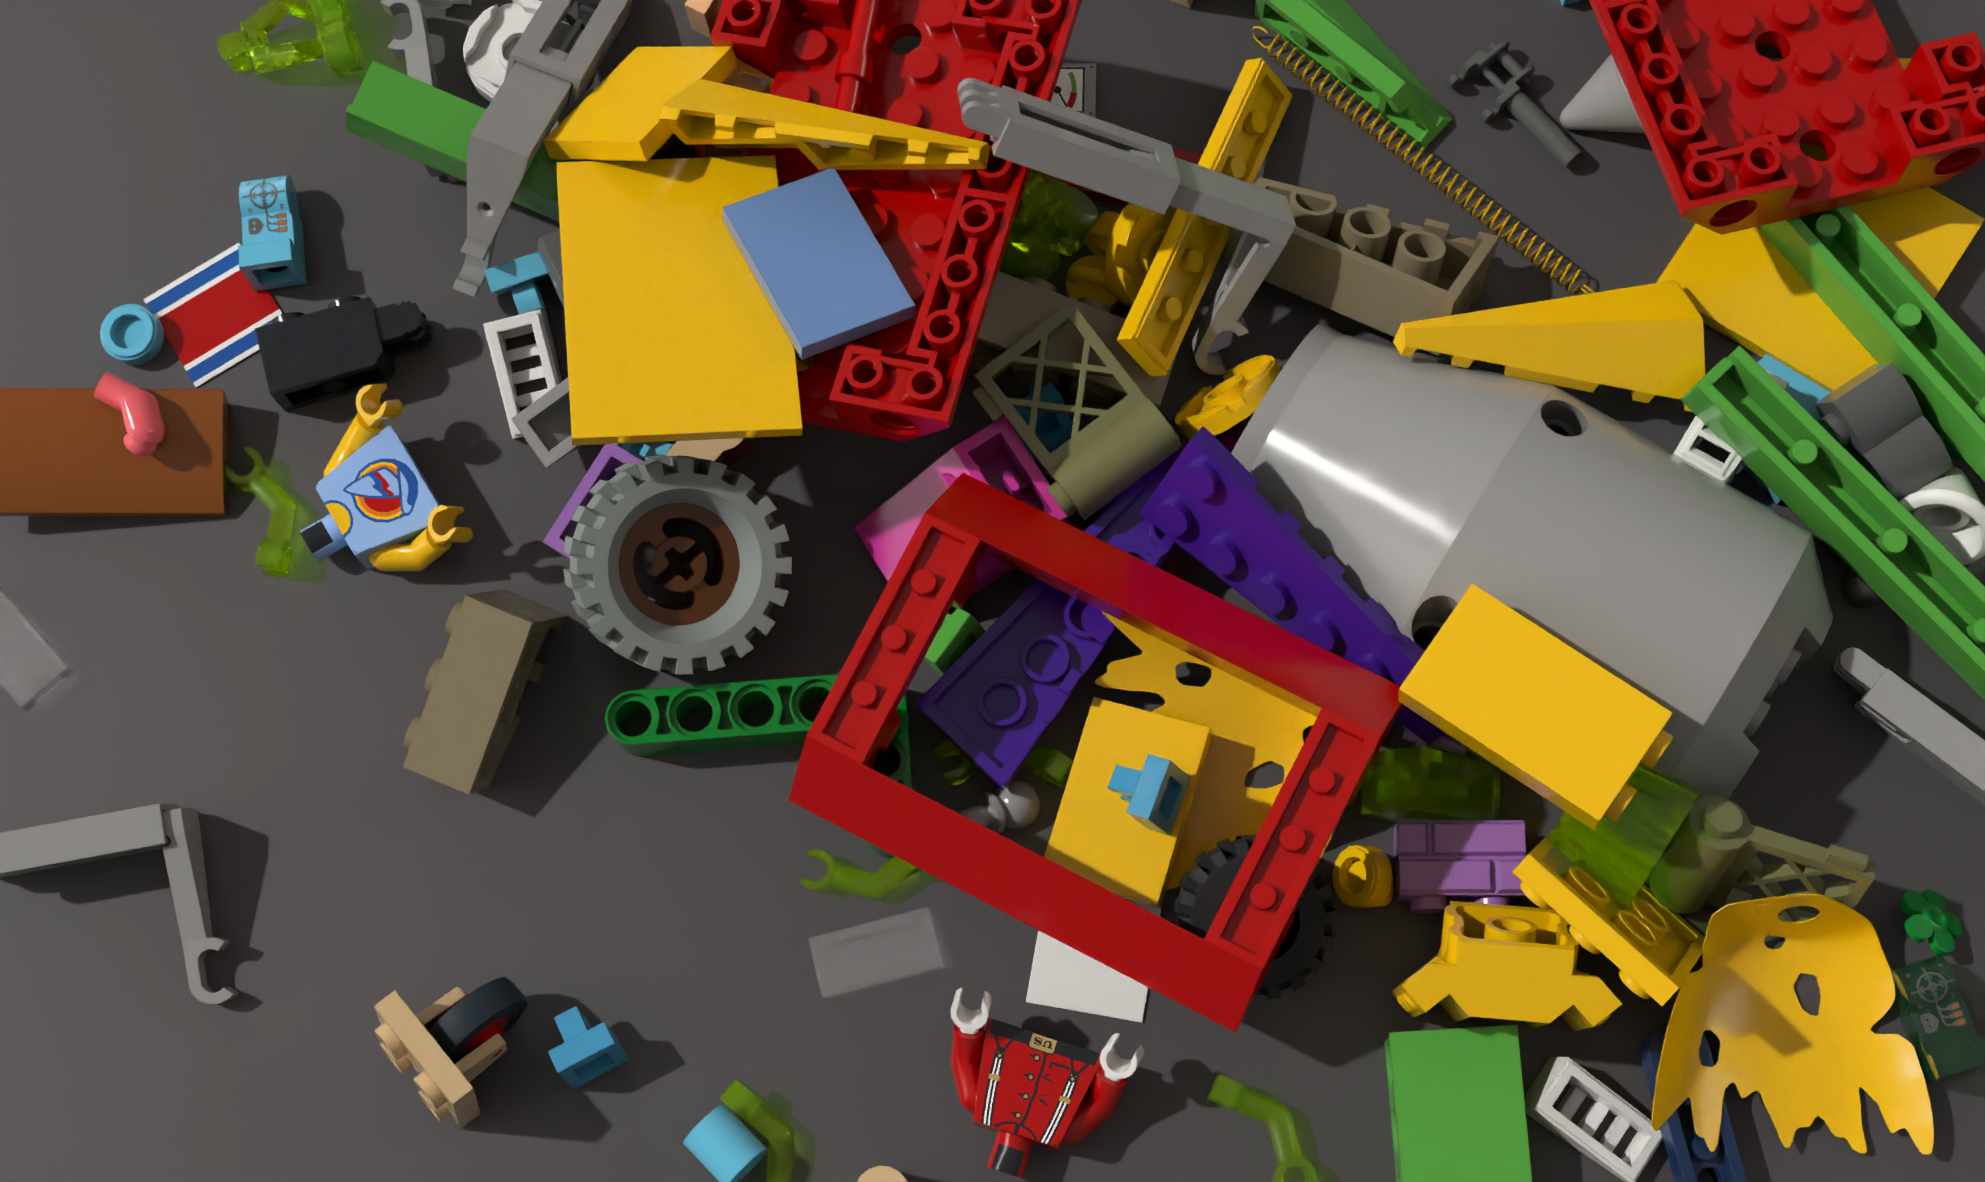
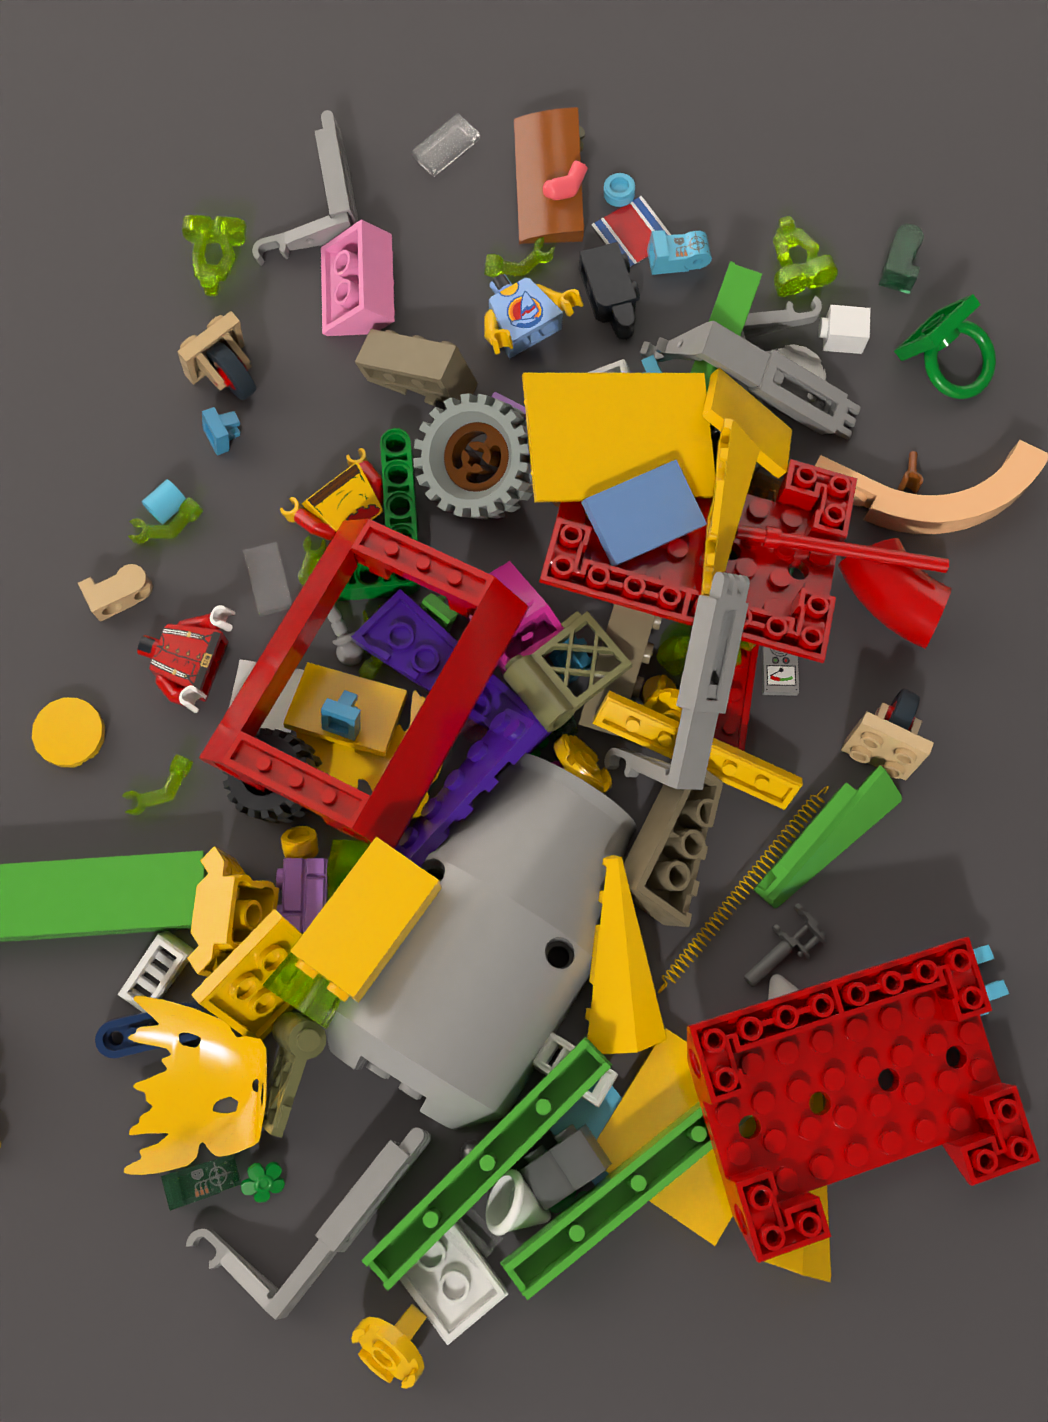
camera: 80 degrees right, 0 degrees up
(166, 1091) = (203, 231): none -> clear neon green piece
(294, 803) = (357, 281): none -> bright pink slope
(741, 812) = (349, 496): none -> torso

